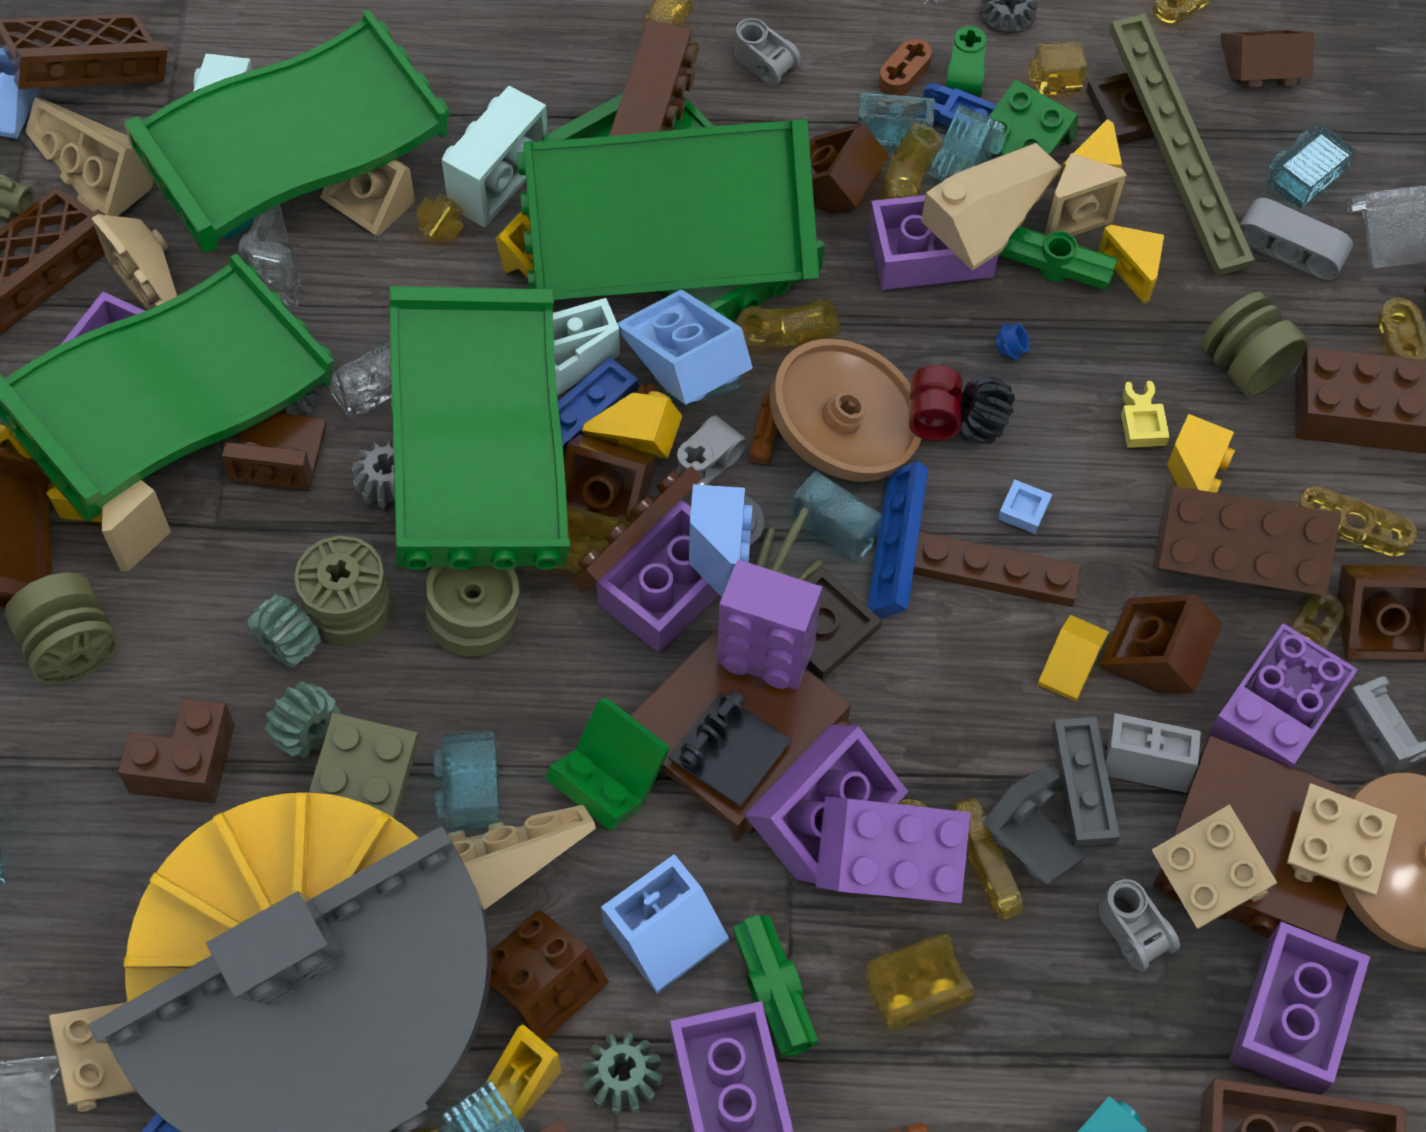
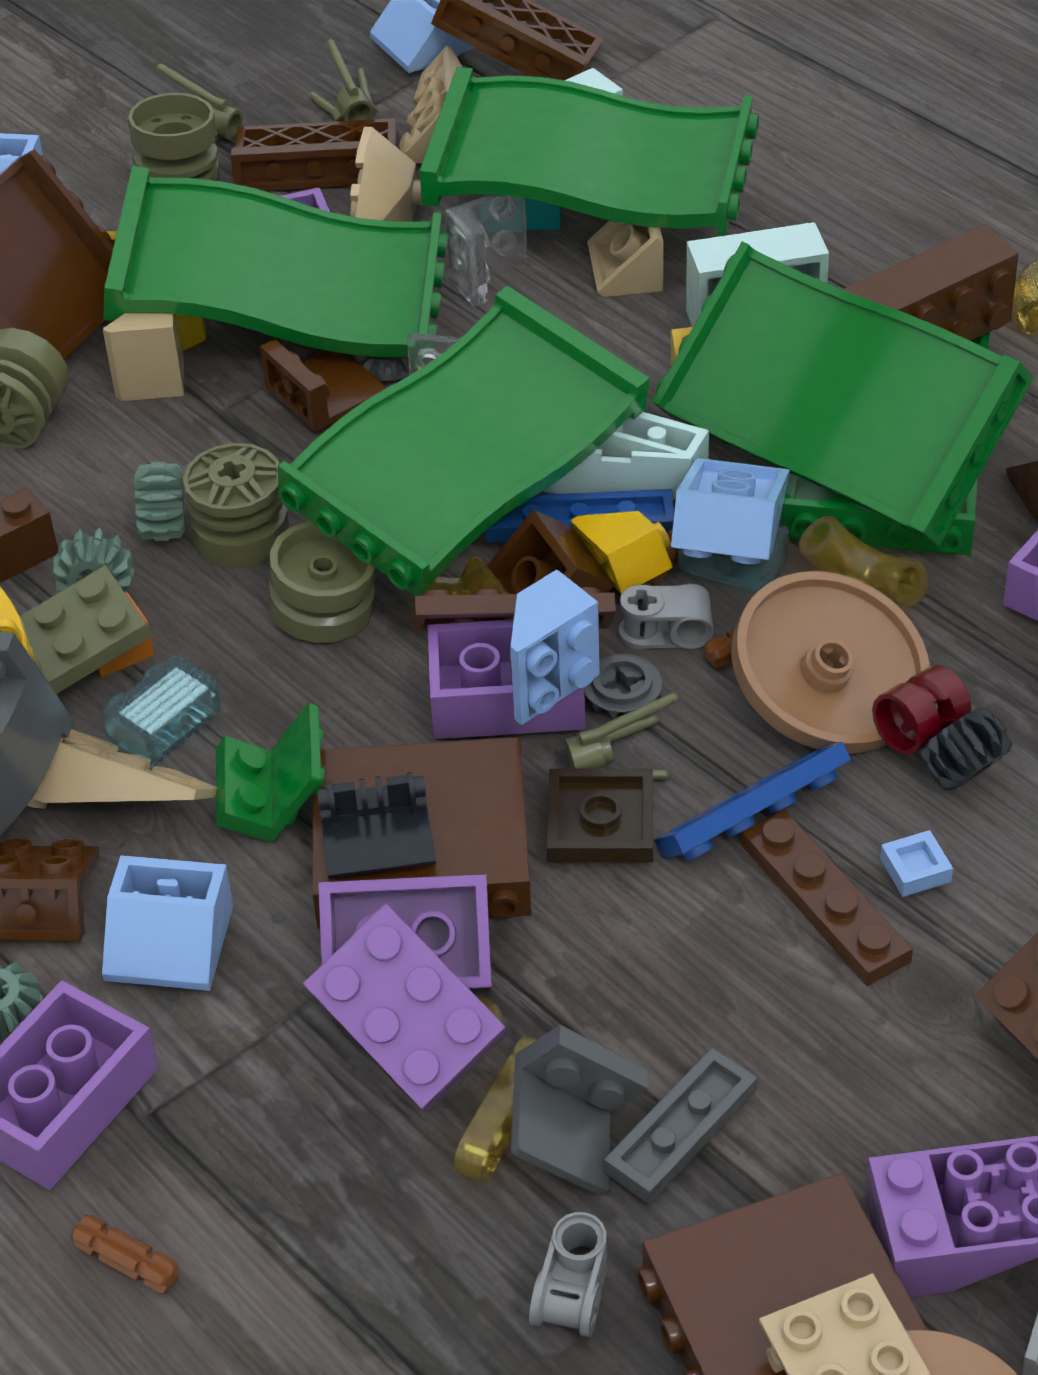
camera: 50 degrees right, 15 degrees down
(439, 218) = (657, 304): clear yellow gear -> none
(767, 625) = (500, 734): medium lavender brick -> none
(776, 984) = (195, 1050): green piece -> none
(837, 516) = (716, 739): clear light blue brick -> none
(917, 982) = (315, 1147): clear yellow bracket -> none
(1072, 658) = (807, 1016): yellow slope -> none
(1152, 752) = (771, 1143): light grey hinge -> none
(1162, 642) = (911, 1075): reddish brown slope -> none
(1214, 867) = (690, 1272): tan hinge -> none

